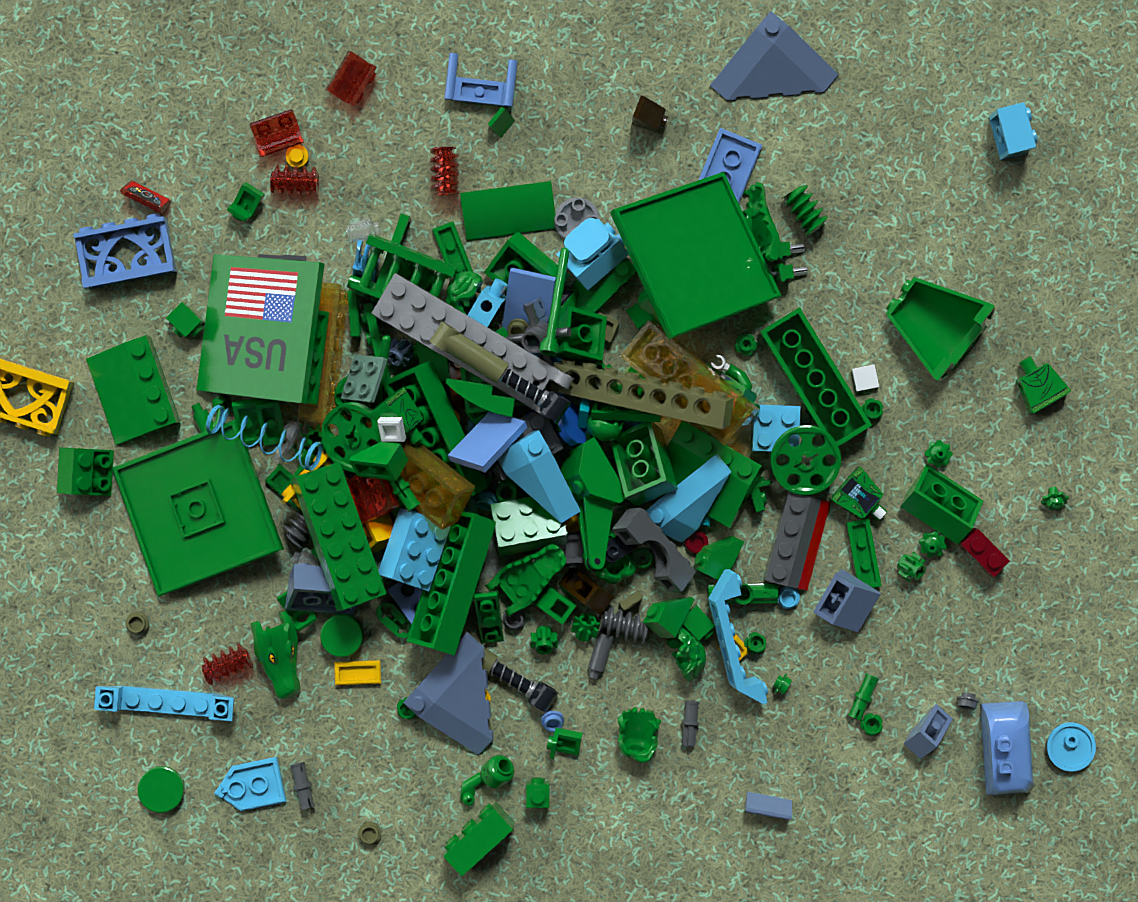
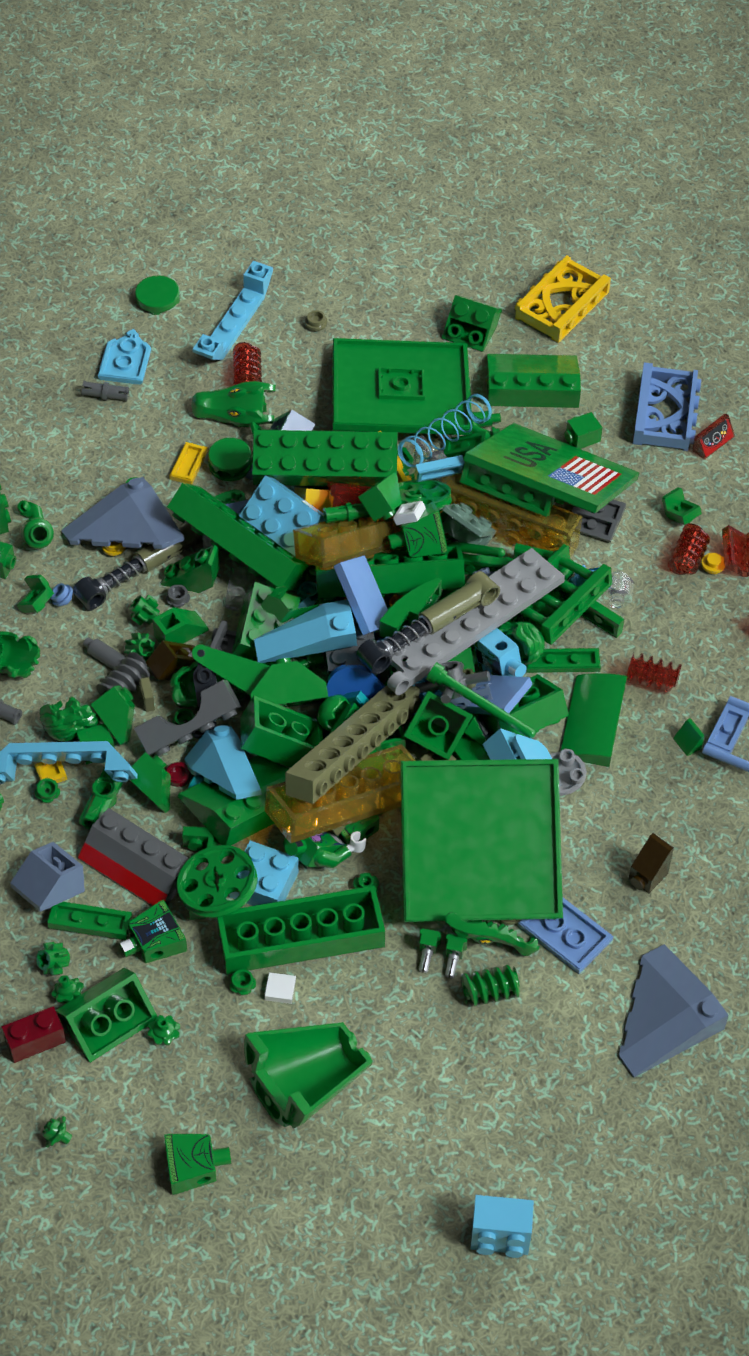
camera: 110 degrees right, 35 degrees down
(313, 426) = (439, 468): none -> medium azure tile
(369, 833) = (34, 426): olive plate -> none
(528, 576) = (213, 607): green animal -> none
(529, 511) = (274, 605): none -> green piece
(788, 597) = (77, 835): medium azure plate -> none

